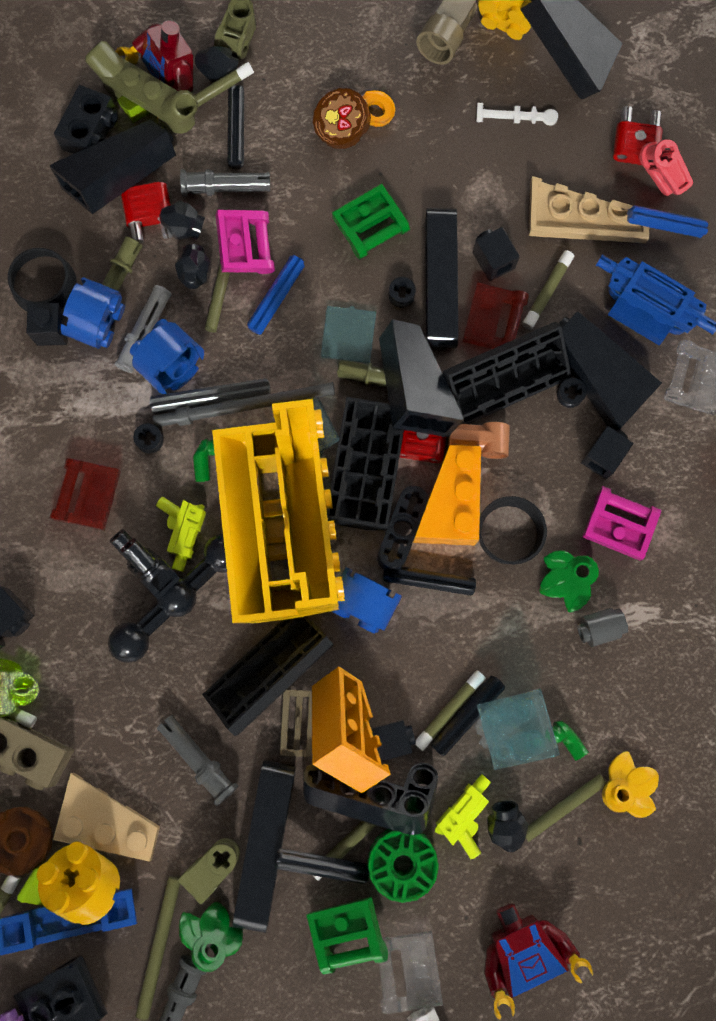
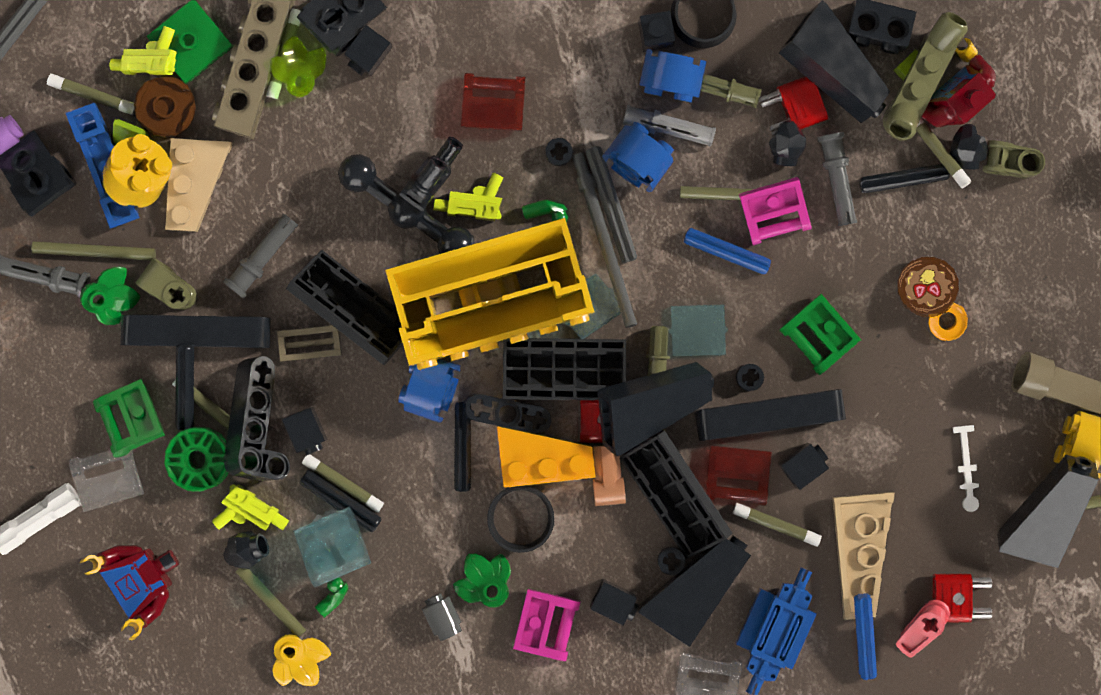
camera: 85 degrees right, 10 degrees up
(193, 266) = (740, 163): black rock -> none
(342, 732) = (304, 386): light orange wedge -> none

